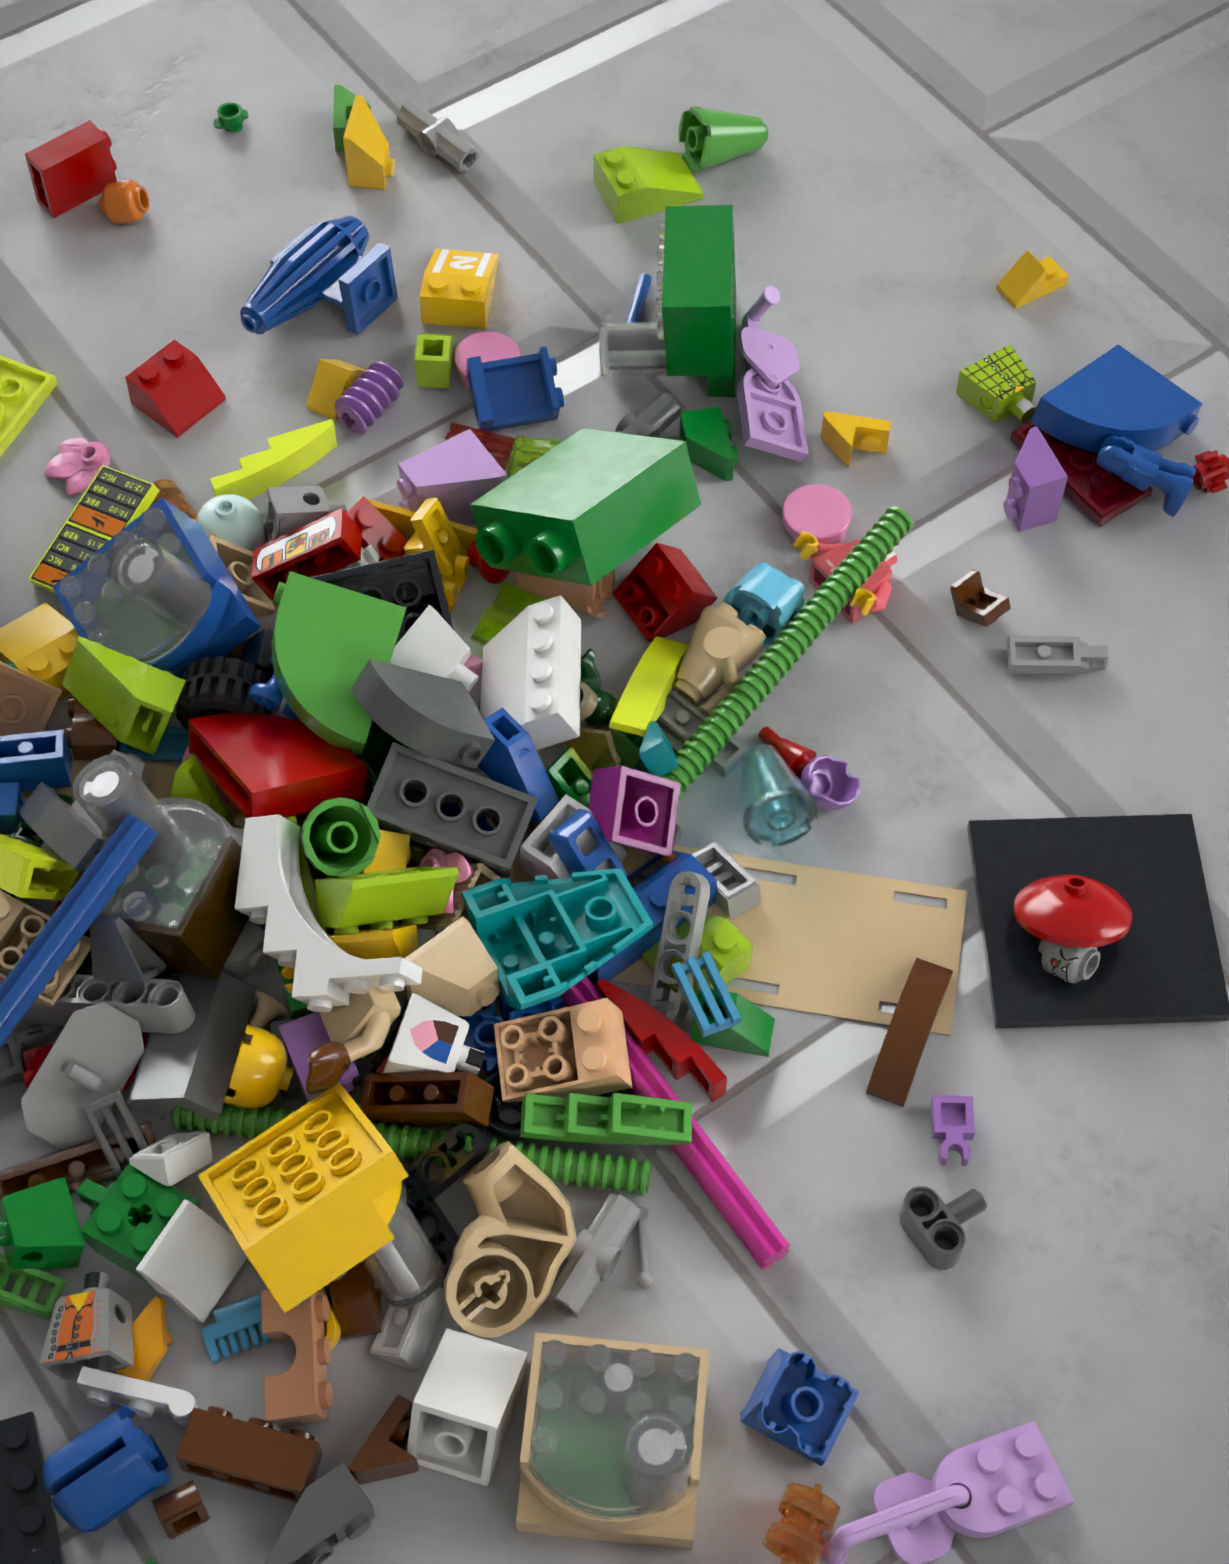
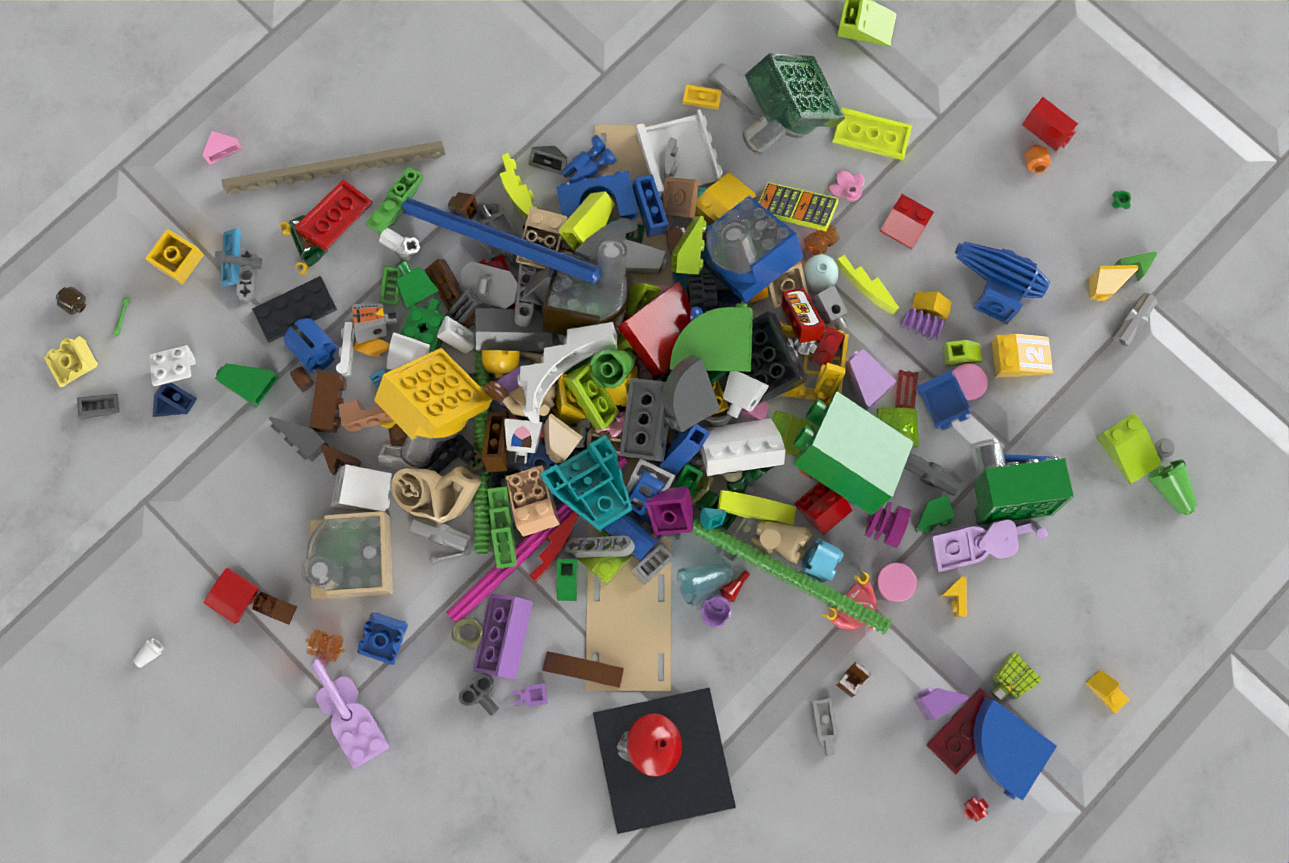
camera: 80 degrees right, 20 degrees up
(654, 140) = (1164, 447): none -> light grey plate
(694, 966) = (585, 554): dark azure tile -> none
(726, 497) = (889, 523): none -> magenta wheel
(827, 1163) = (503, 636): none -> medium lavender slope
(837, 1218) = (472, 643): none -> olive piece
(1145, 467) = (962, 762): blue piece -> none

